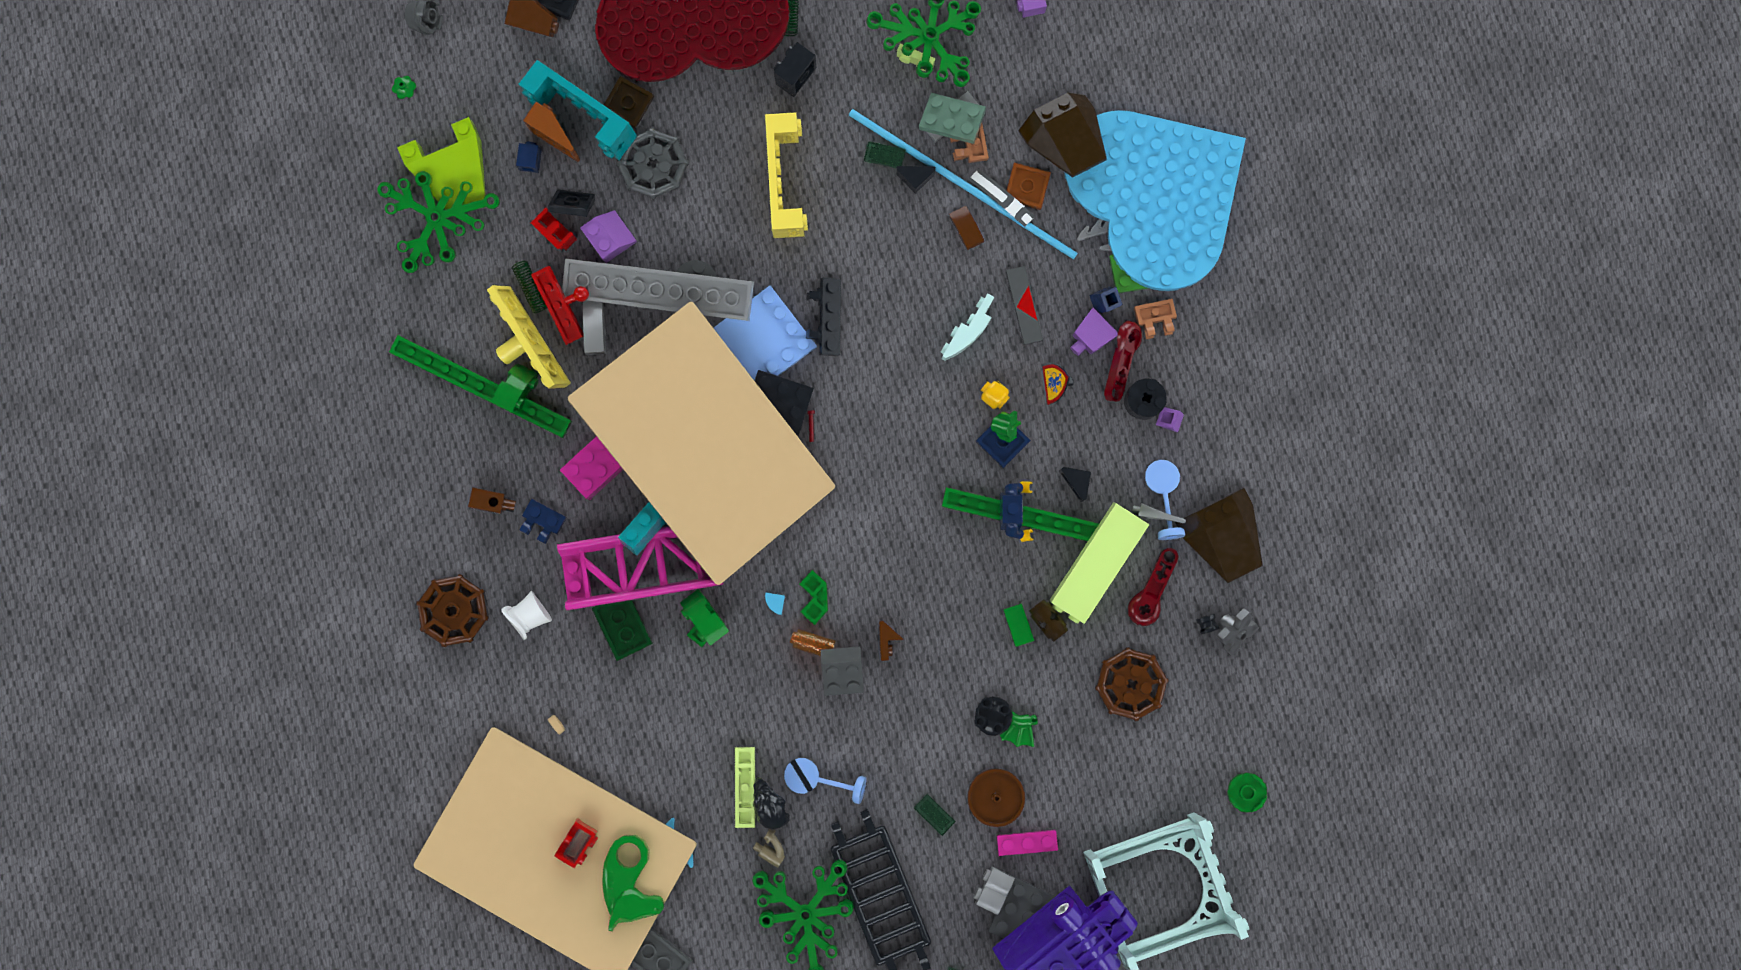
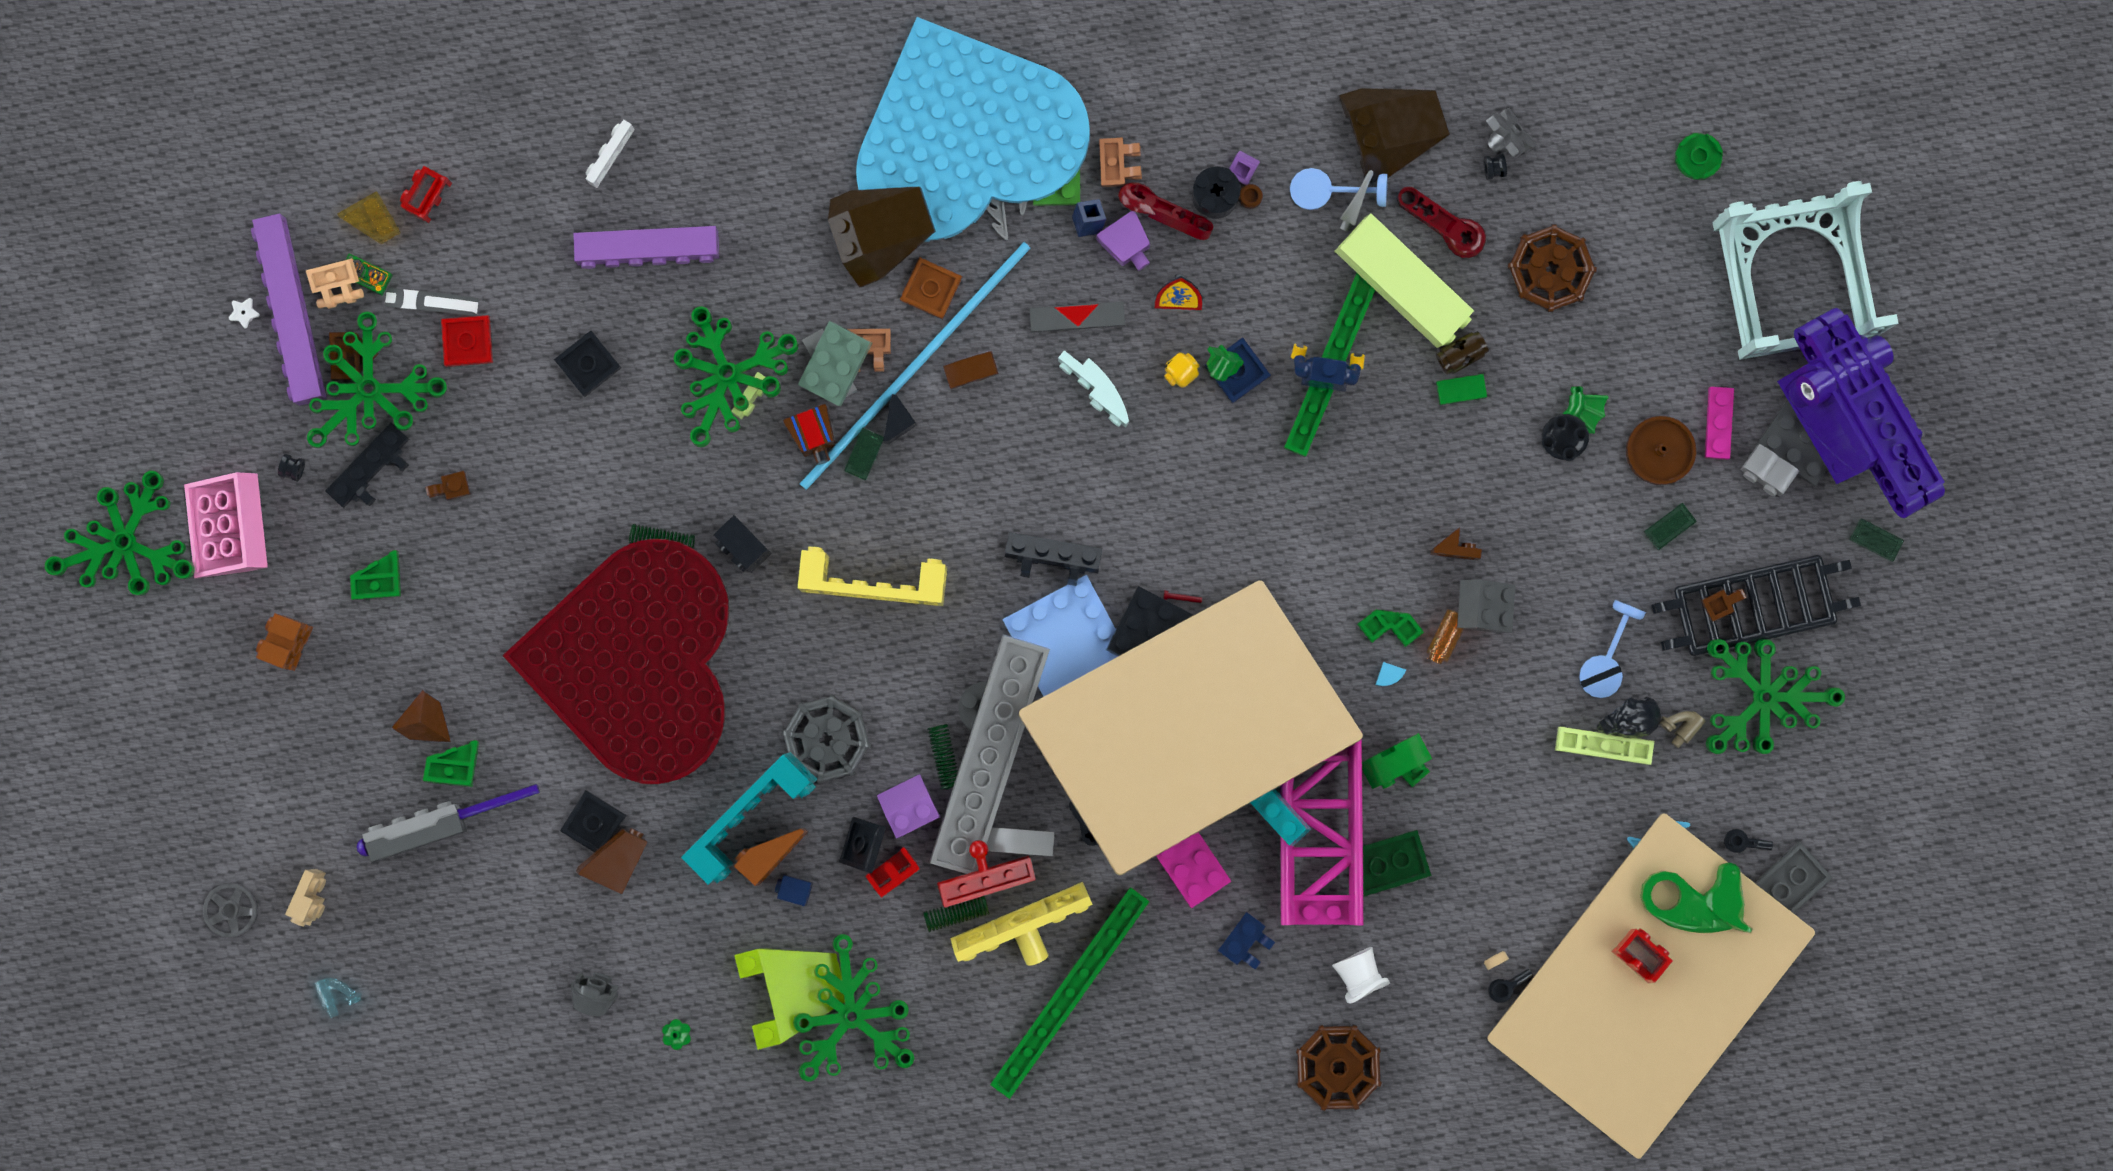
camera: 75 degrees left, 0 degrees up
(481, 499) = (1212, 1010): reddish brown torso -> none
(513, 391) = (1082, 949): green brick -> none
(533, 733) = (1501, 990): none -> black plate
(629, 101) = (745, 757): dark brown plate -> none
(649, 262) = (936, 745): none -> dark green piece
(684, 908) = (1737, 841): none -> black plate
(875, 864) = (1720, 603): none -> reddish brown plate
(894, 111) = (812, 432): none -> torso
(1002, 197) = (940, 321): sticker -> none
(1077, 480) = (1301, 289): black slope -> none
(1147, 428) = (1250, 196): none -> reddish brown tile

